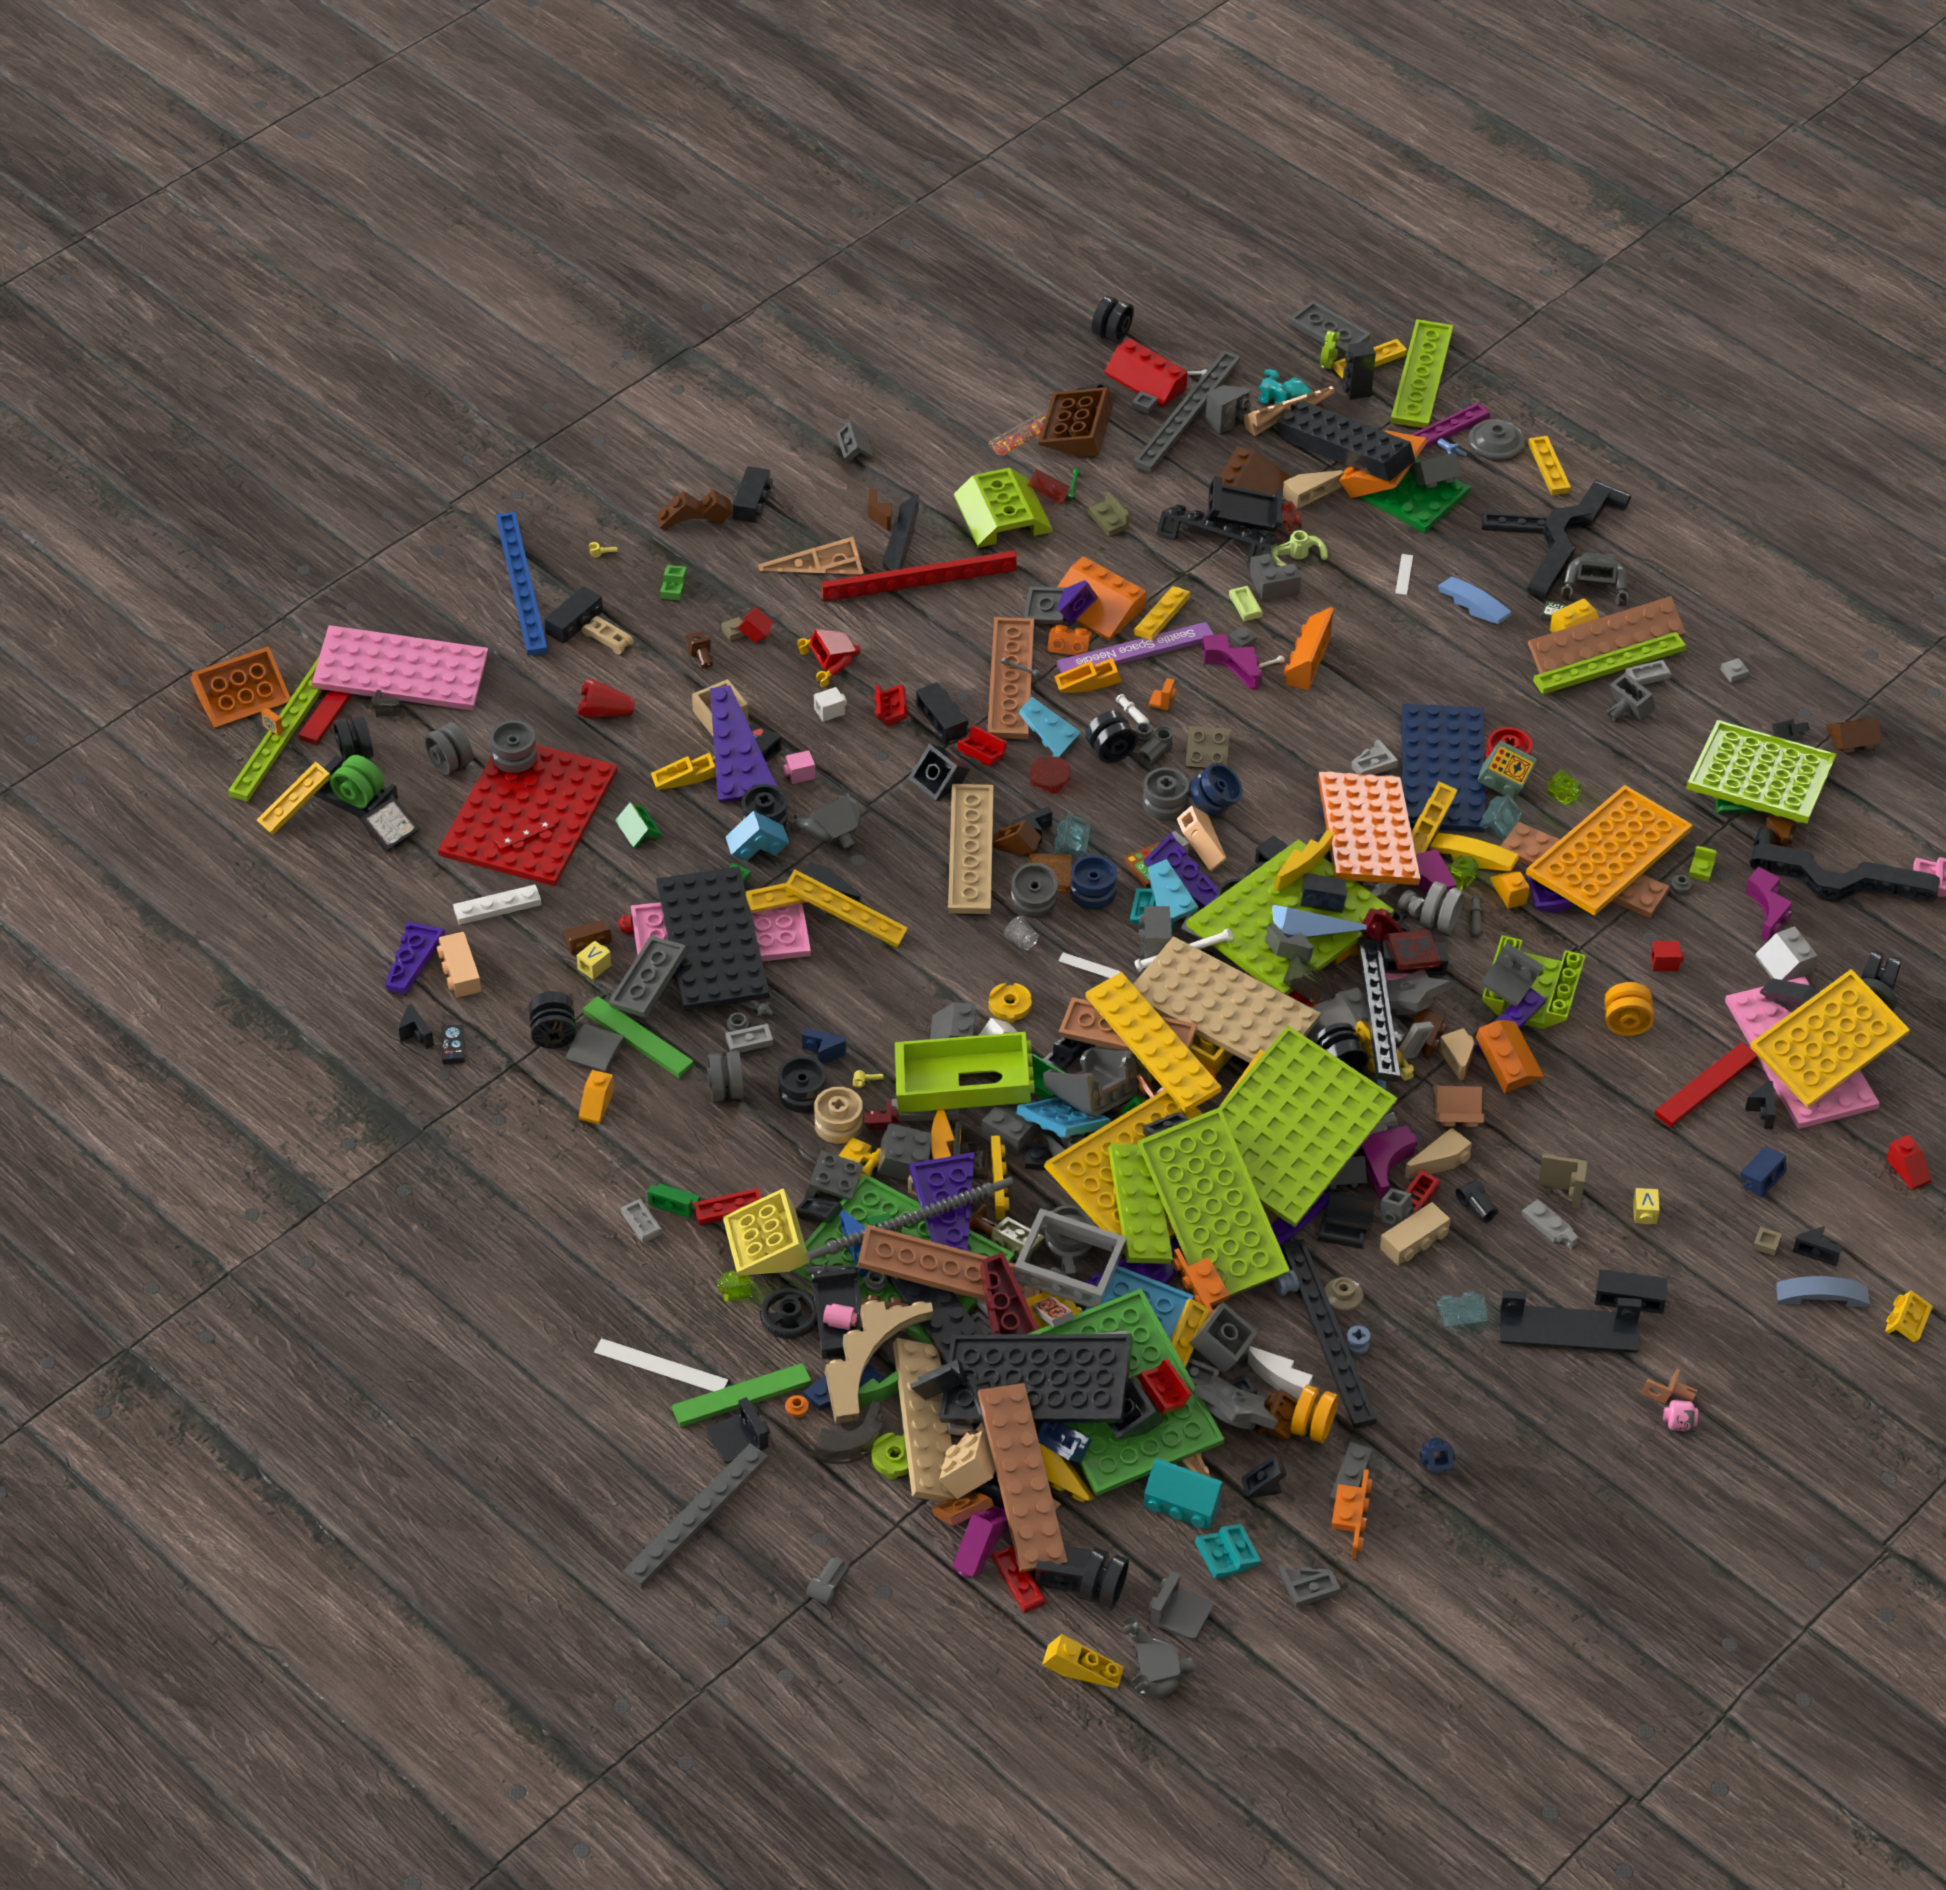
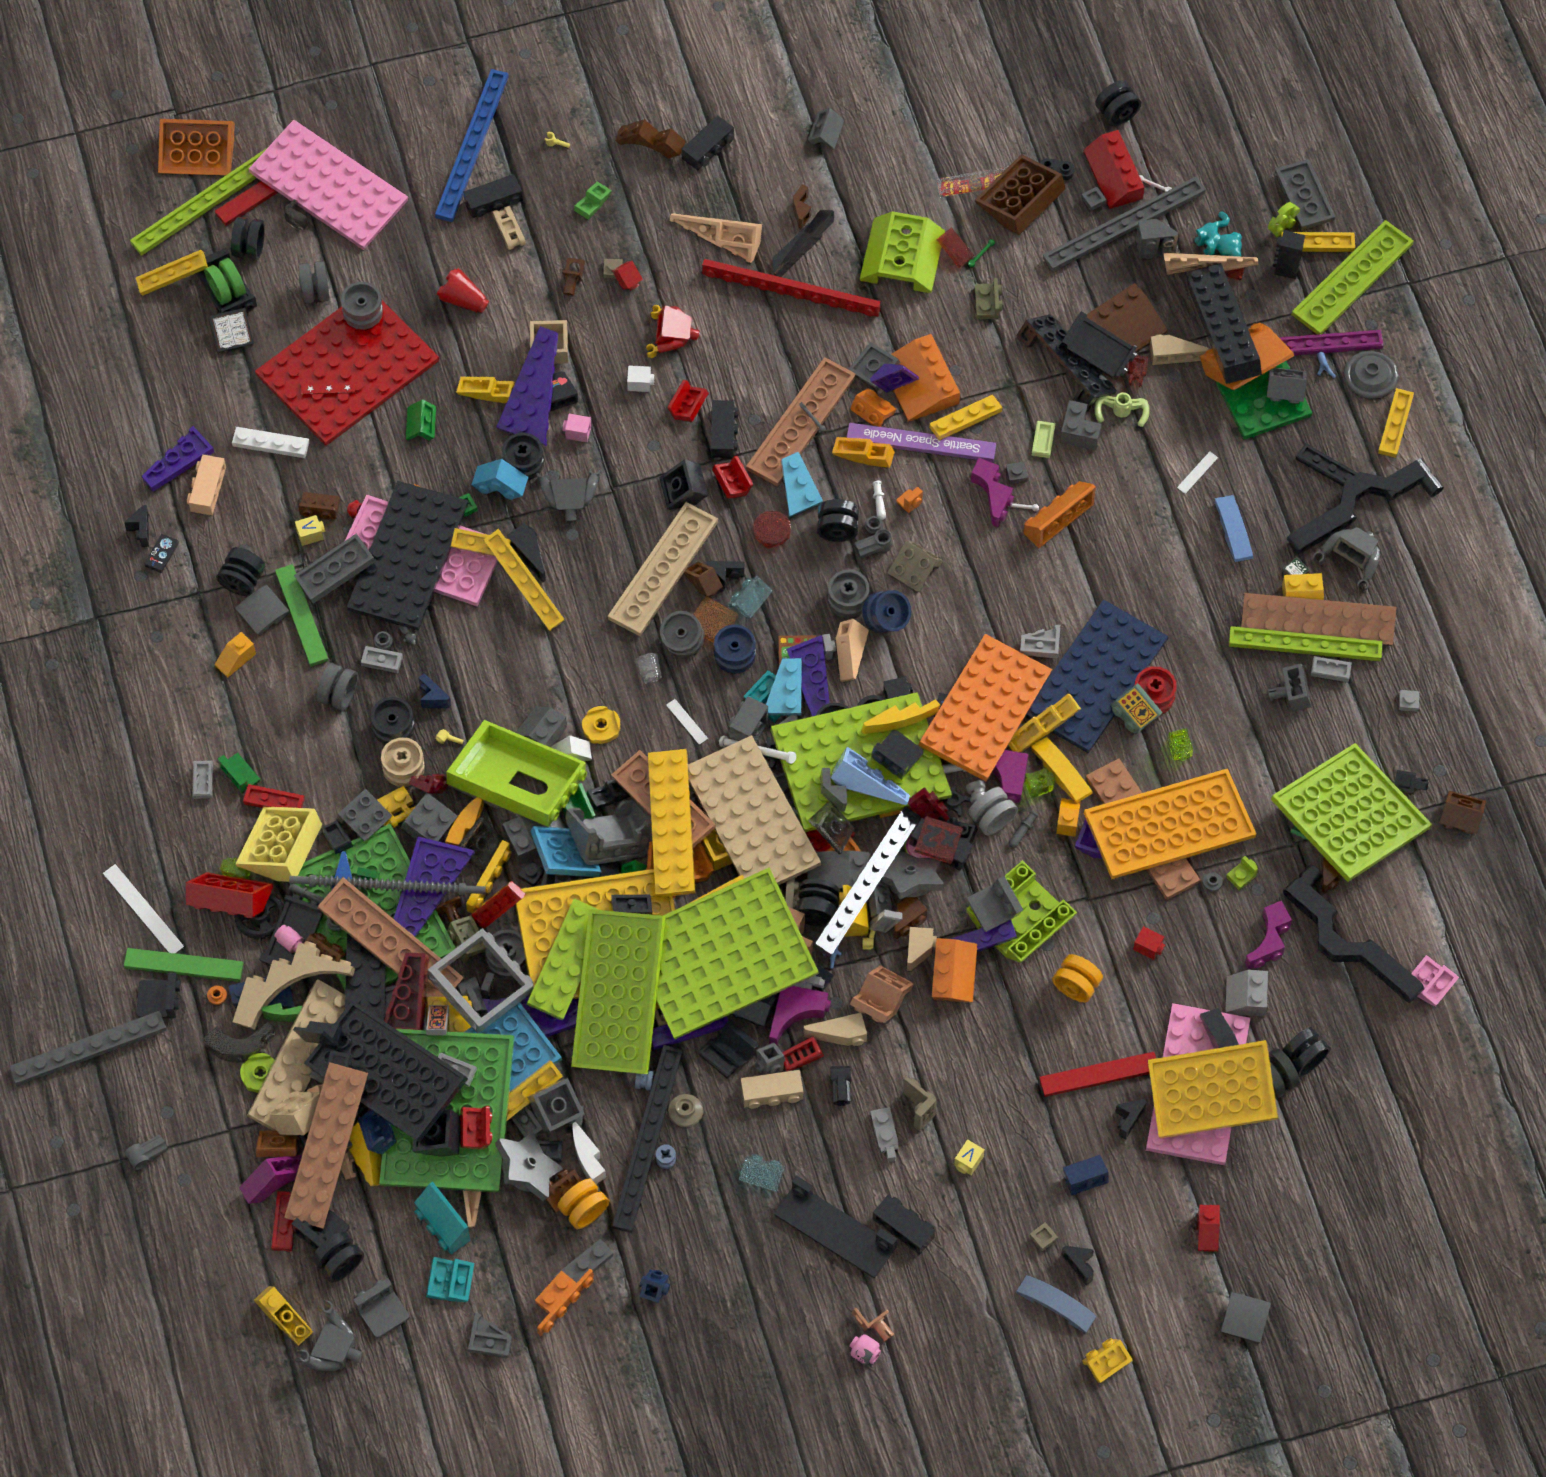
camera: 30 degrees right, 15 degrees up
(272, 721) = (196, 192): orange tile -> none
(747, 1305) = (228, 894): none -> red slope
(1036, 1185) = (497, 904): none -> red plate
(1201, 1280) = (576, 1048): orange bracket -> none
(1264, 1478) = (514, 1236): black slope -> none
(1501, 816) = (1107, 747): clear light blue bracket -> none

